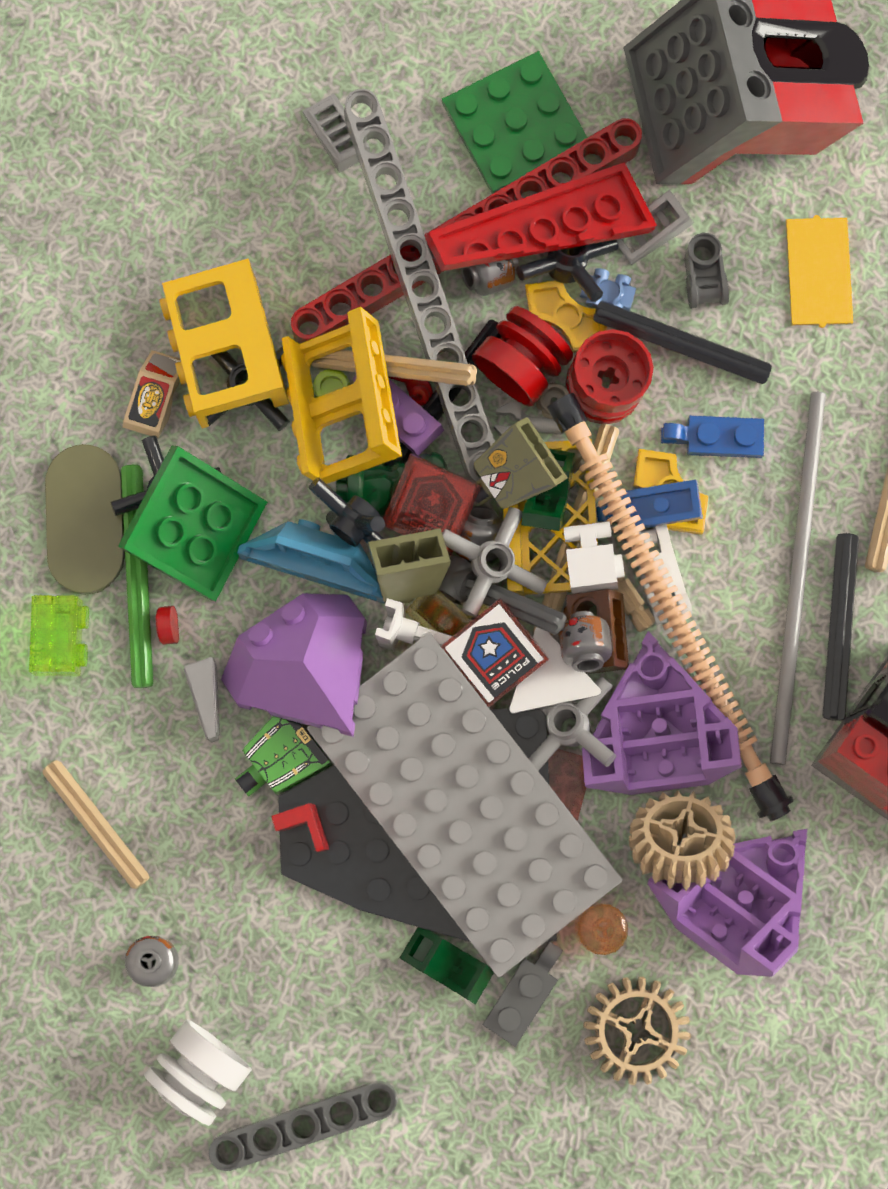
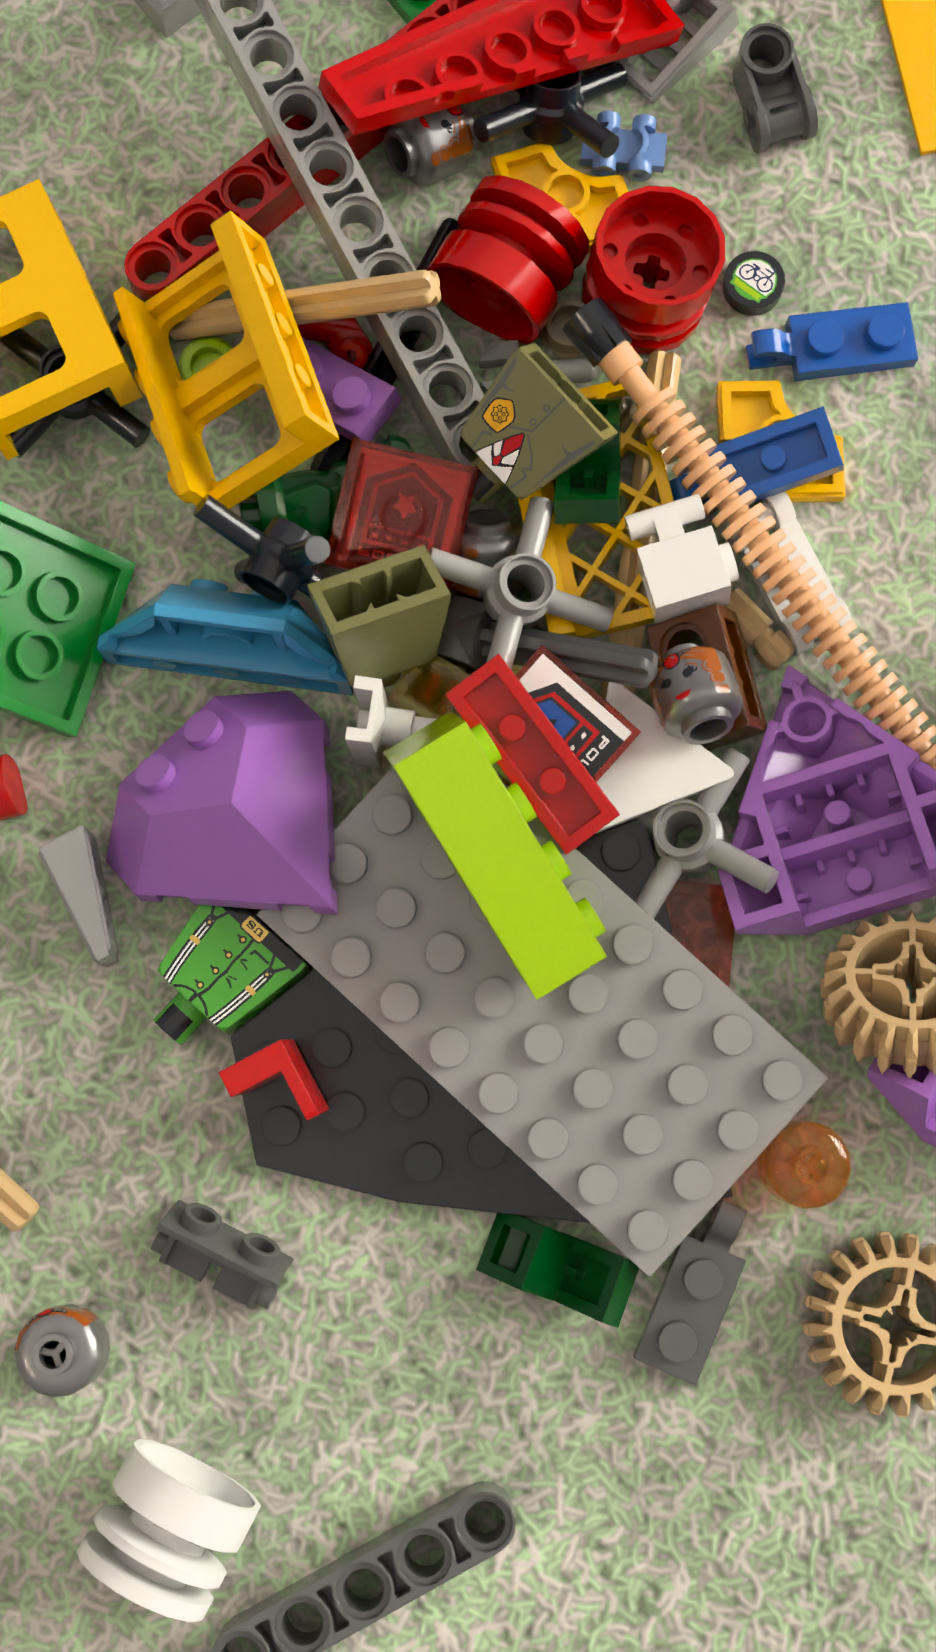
camera: 10 degrees left, 0 degrees up
(238, 910) = (250, 1263): none -> dark grey hinge
(449, 716) = (497, 853): none -> lime wedge
(482, 662) = (534, 754): none -> red plate
(672, 390) = (753, 283): none -> tile
(682, 342) = (766, 205): black axle -> none

